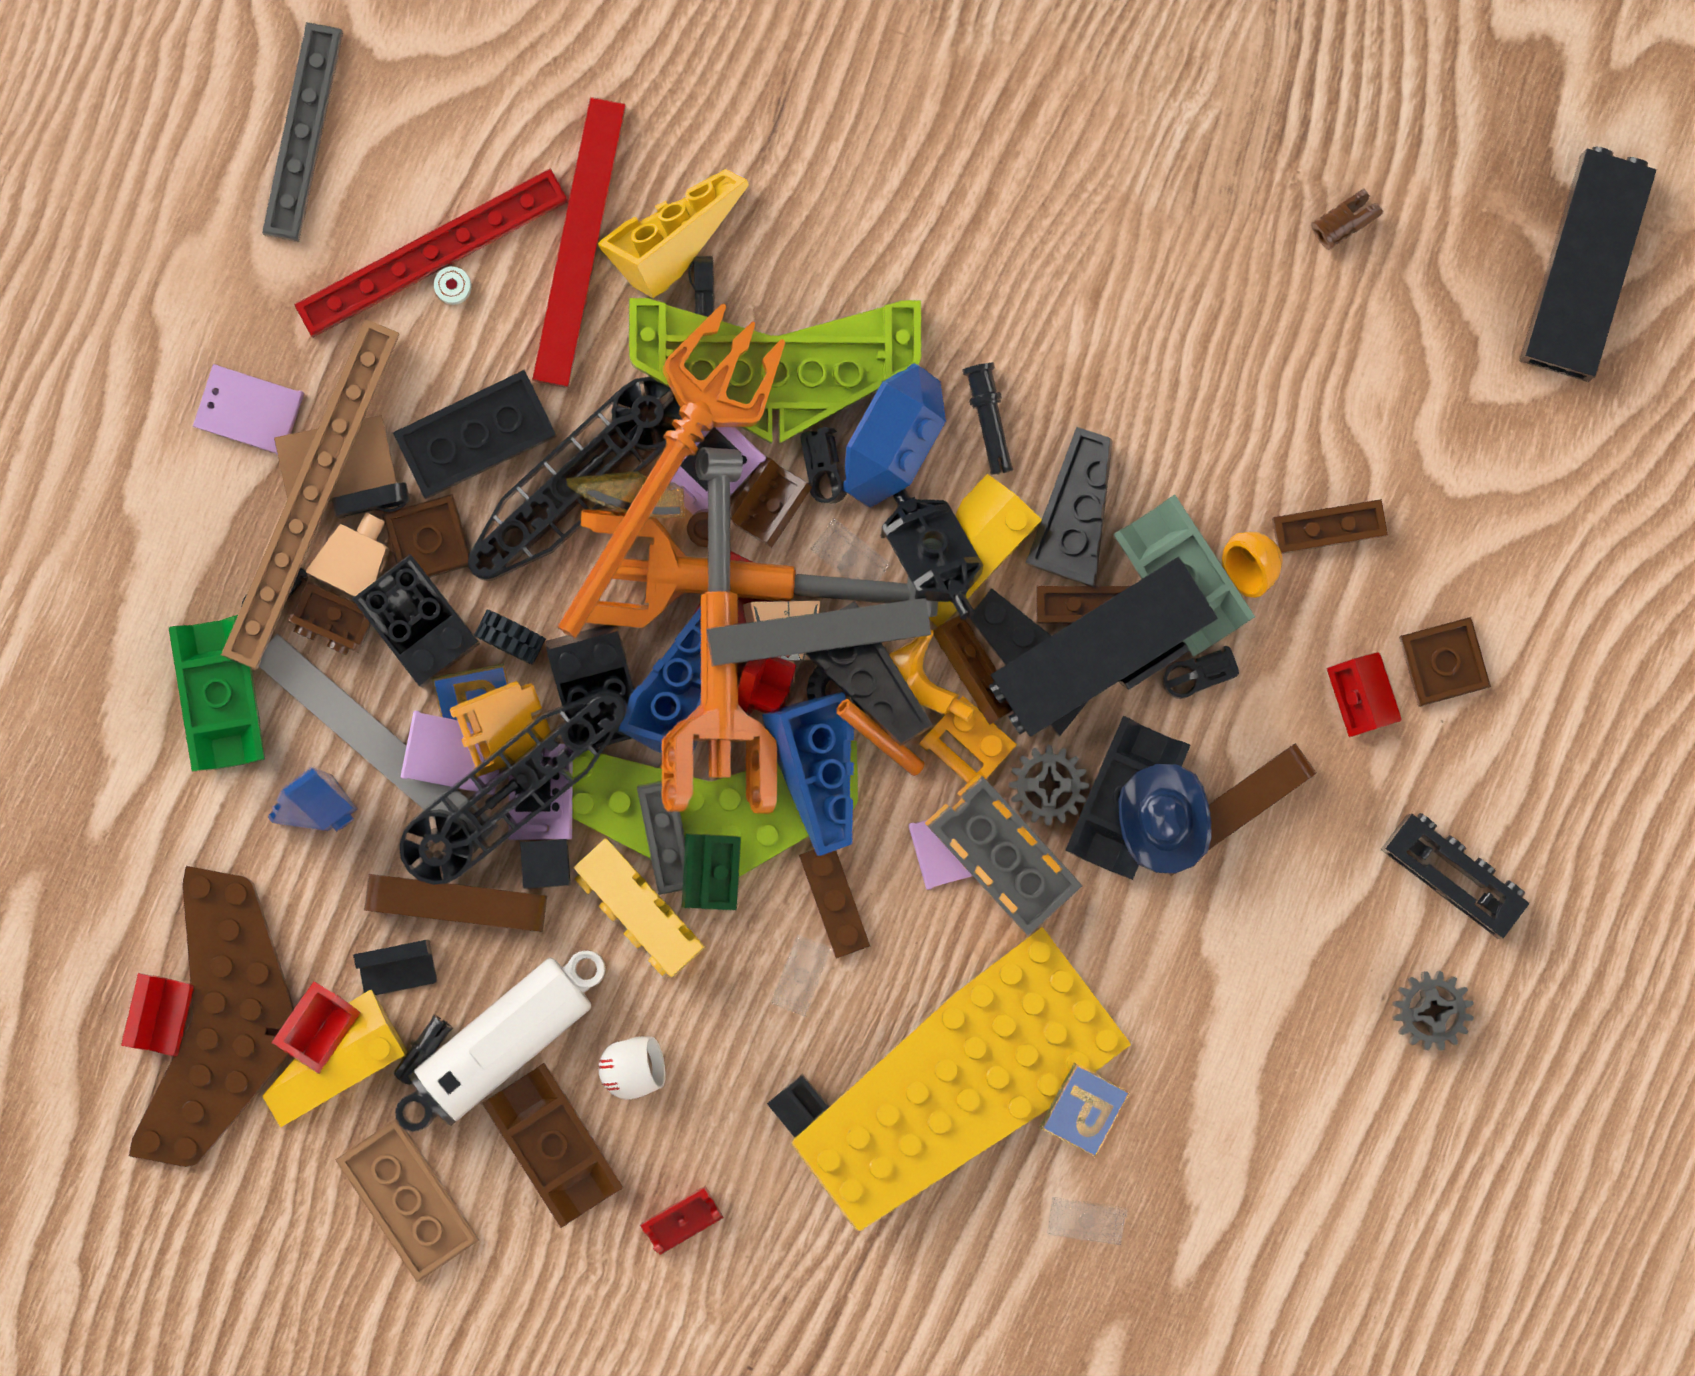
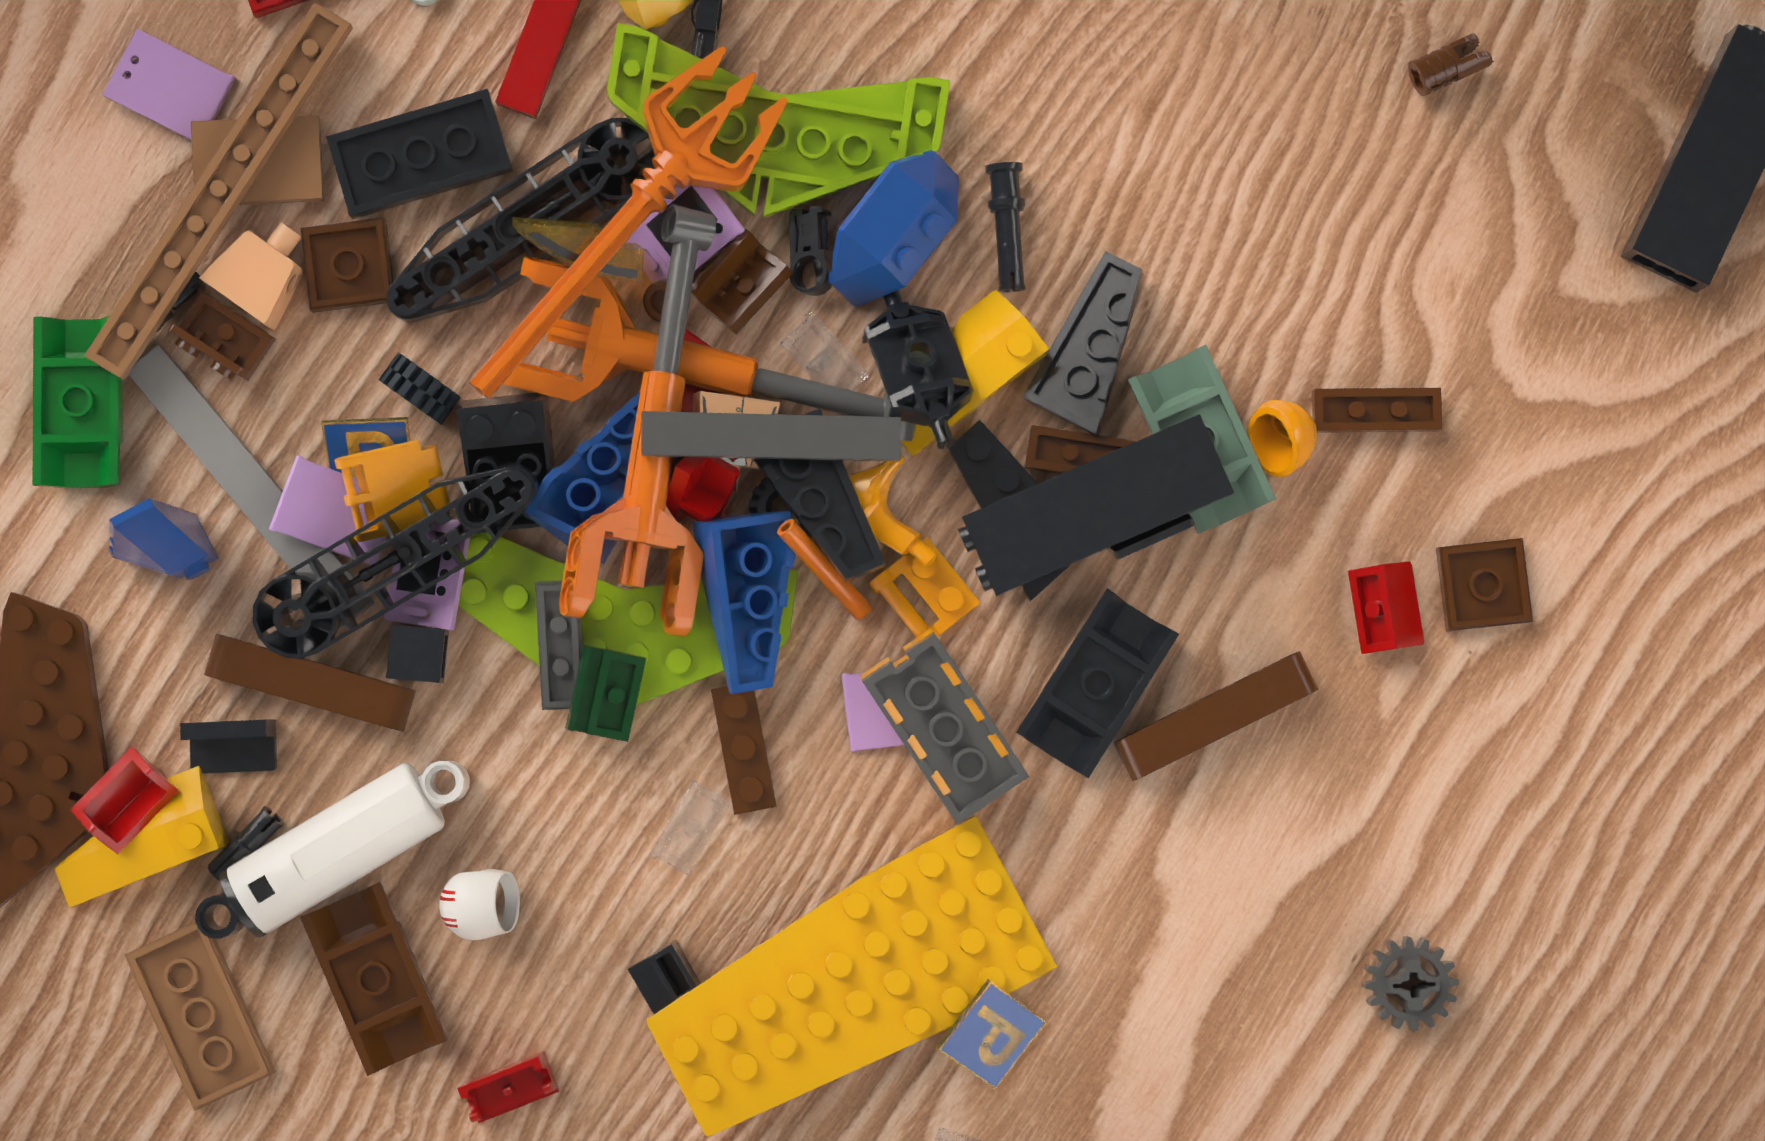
camera: 10 degrees right, 0 degrees up
(372, 499) = (303, 209): black piece -> none
(416, 621) = (316, 354): black slope -> none
(639, 908) = (516, 721): yellow wedge -> none
(971, 666) = (942, 503): reddish brown plate -> none
(1065, 785) = (1027, 657): dark grey gear -> none
(1165, 818) = (1137, 714): dark blue hat -> none
(1207, 672) = (1210, 553): black piece -> none
(1504, 912) = (1509, 882): black brick -> none

